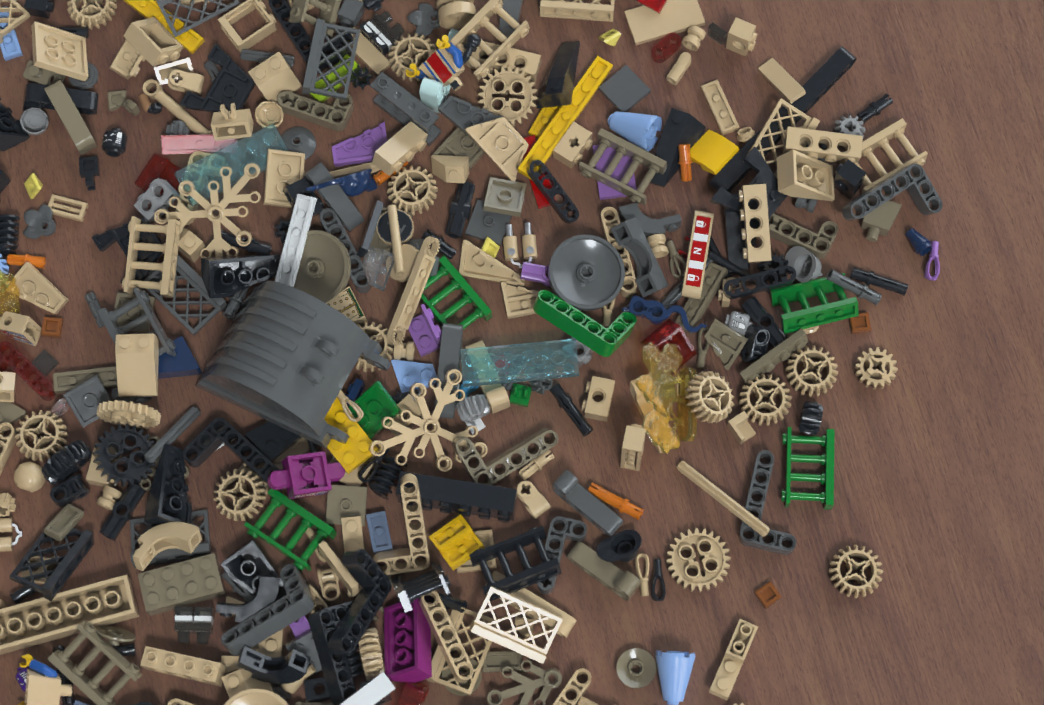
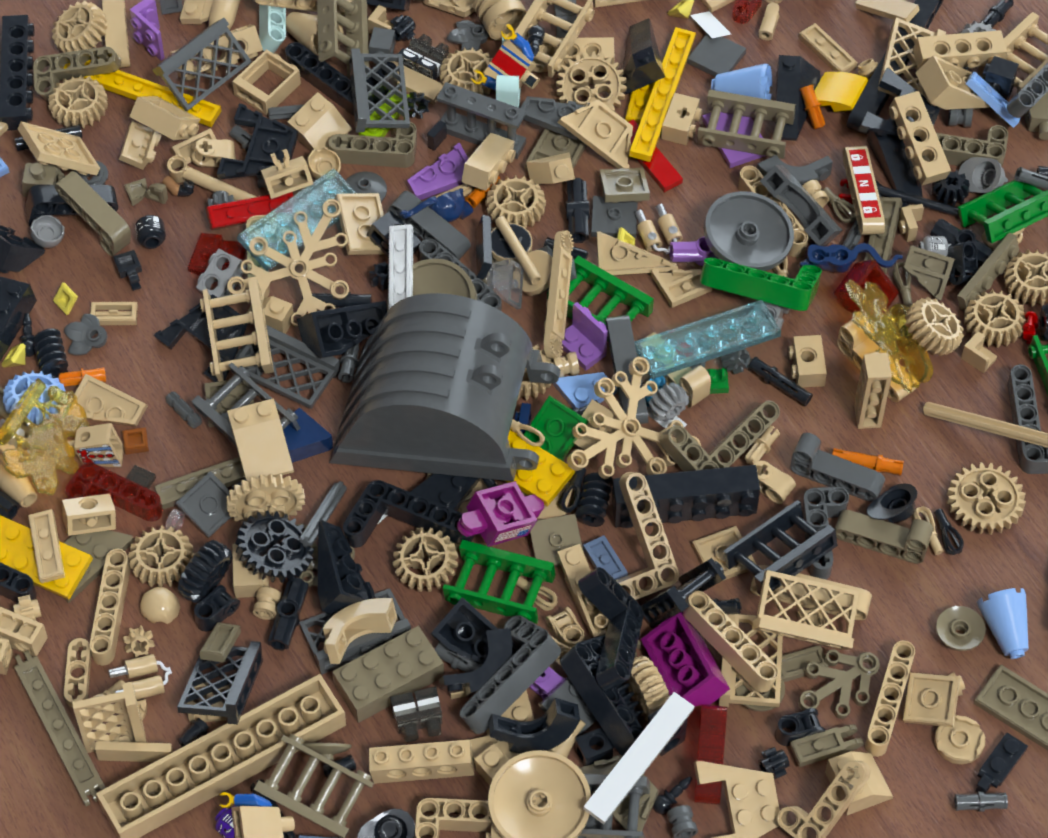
camera: 20 degrees left, 15 degrees down
(338, 568) = (575, 603): tan tile -> none
(369, 110) = (437, 135): none -> black tile
(456, 542) = (699, 543): yellow slope -> none
(556, 189) = (679, 164): black beam -> none
(629, 59) = (710, 24): none -> white sticker
(758, 278) = (942, 197): black beam -> none
(787, 421) = (1029, 327): none -> red piece
(834, 191) = (991, 97): none -> light blue tile

